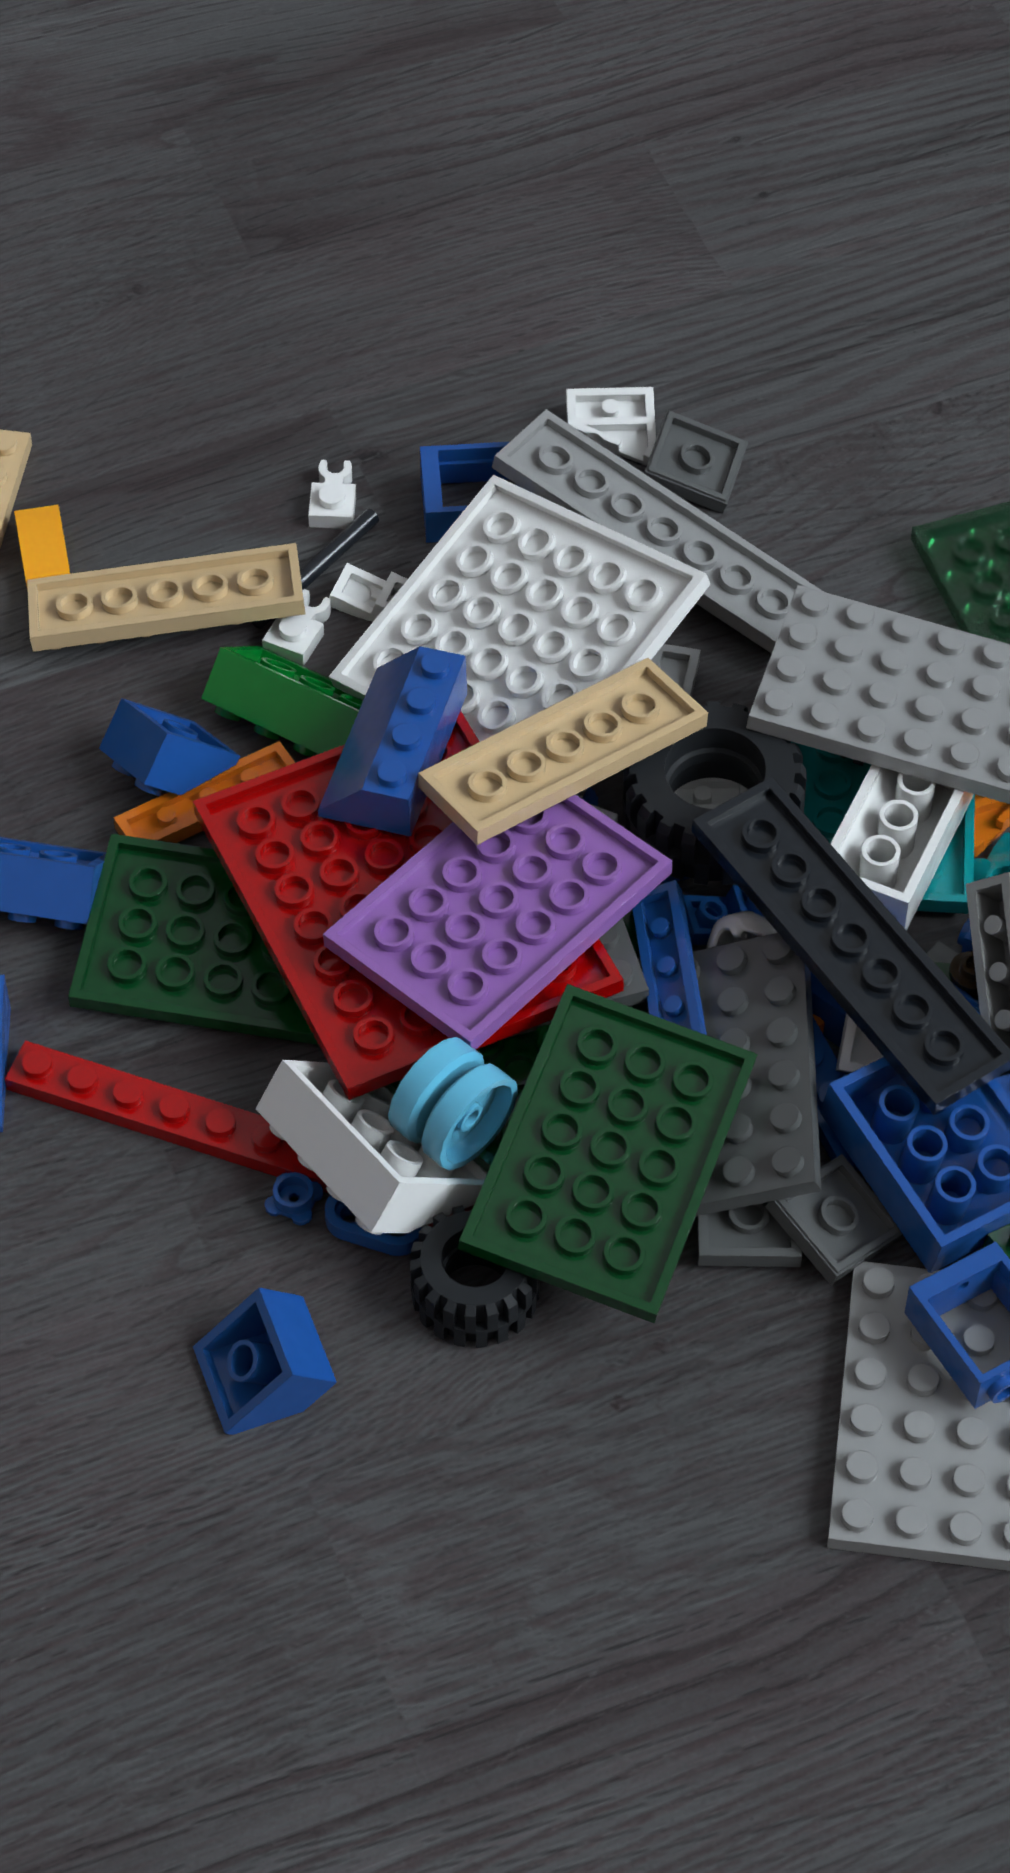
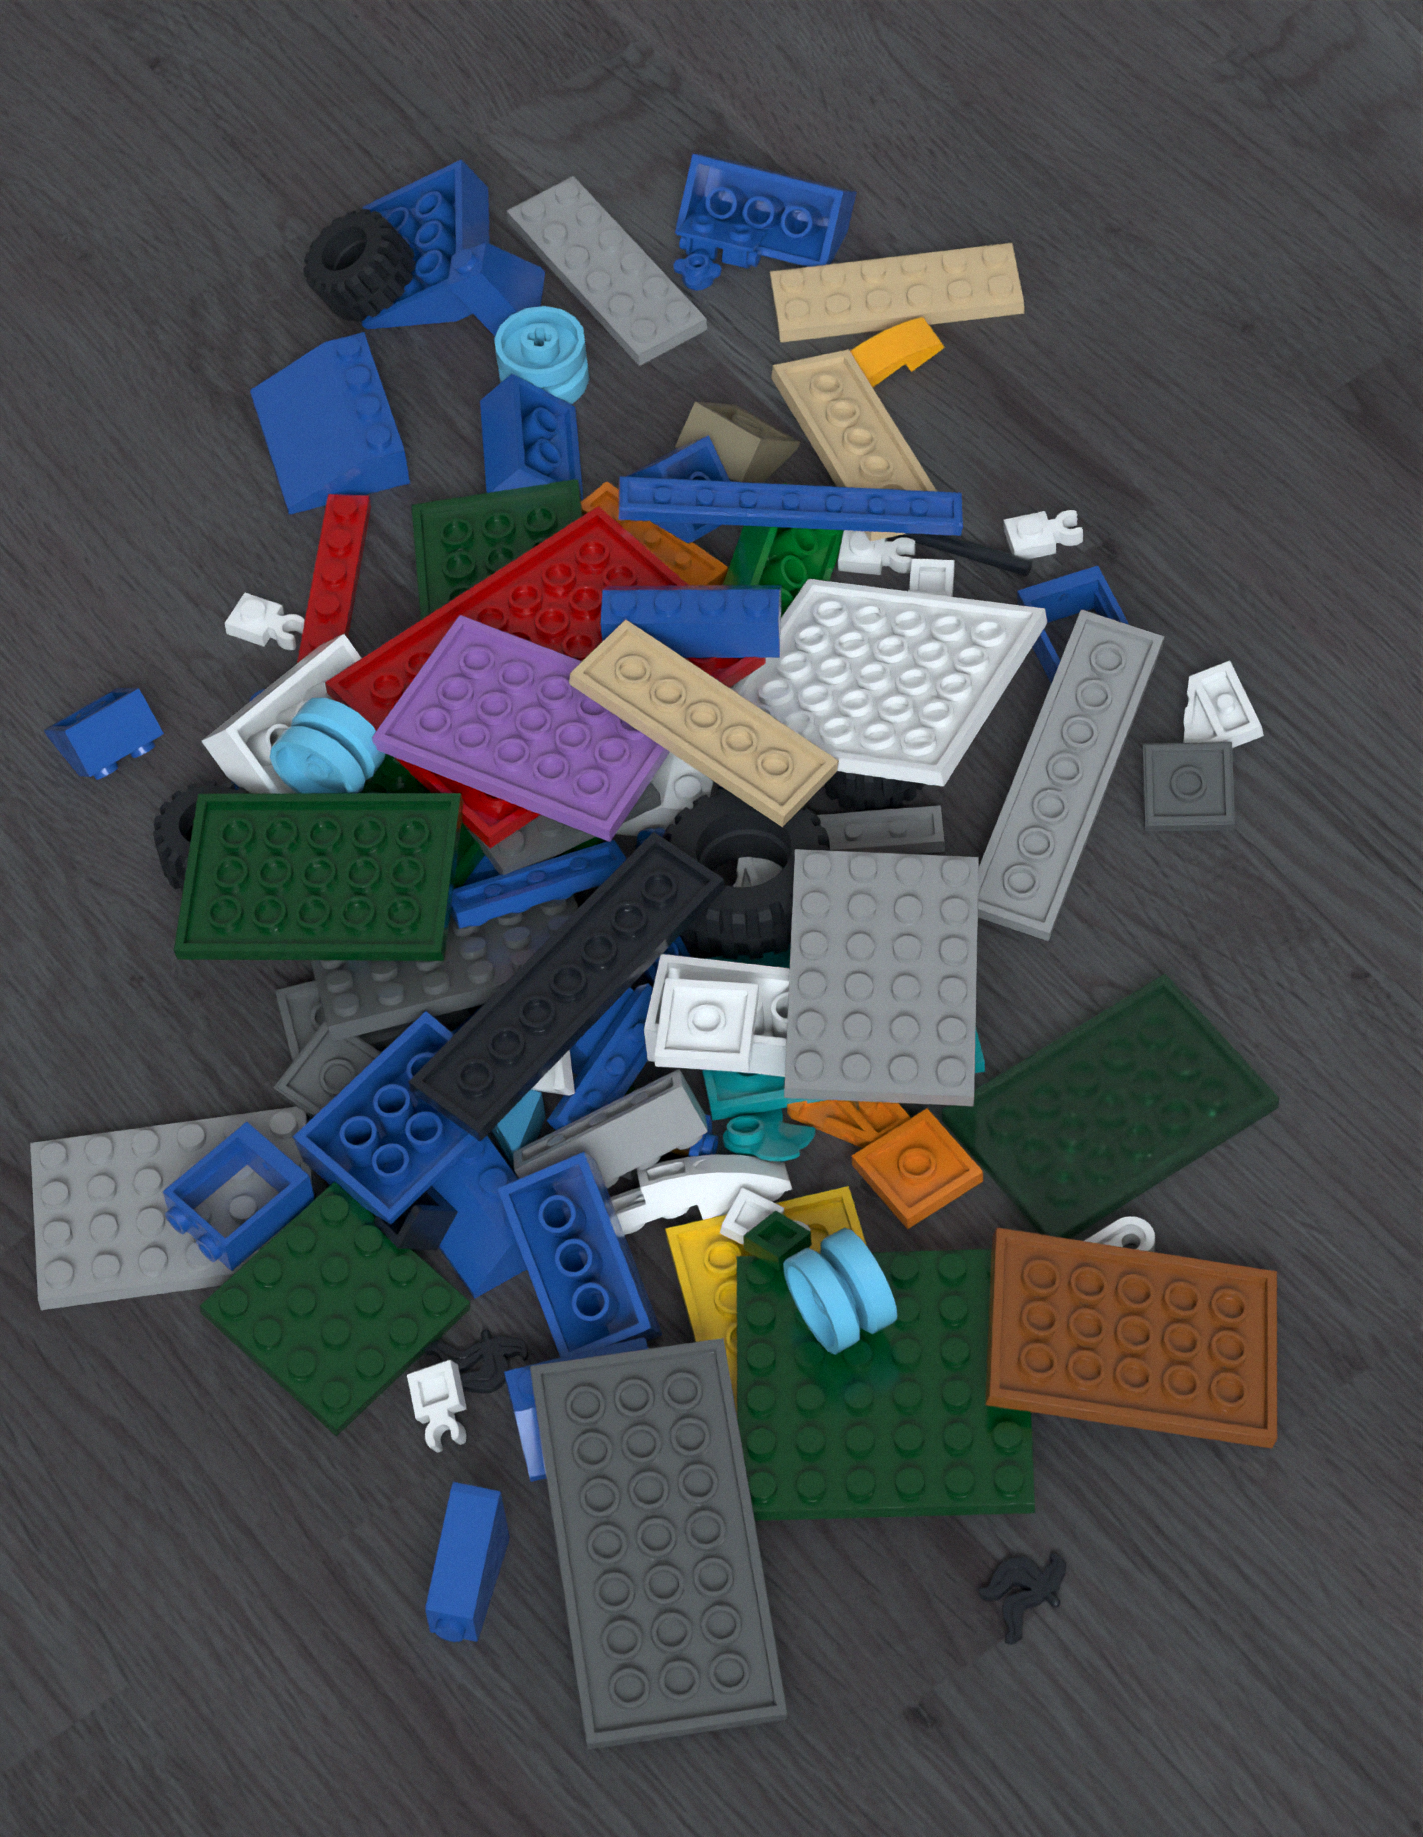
camera: 80 degrees right, 0 degrees up
(92, 699) = (744, 443): none -> dark tan slope
(158, 1185) = (260, 619): none -> white plate
(256, 652) = (790, 506): none -> blue tile
(933, 840) = (706, 1025): none -> white plate

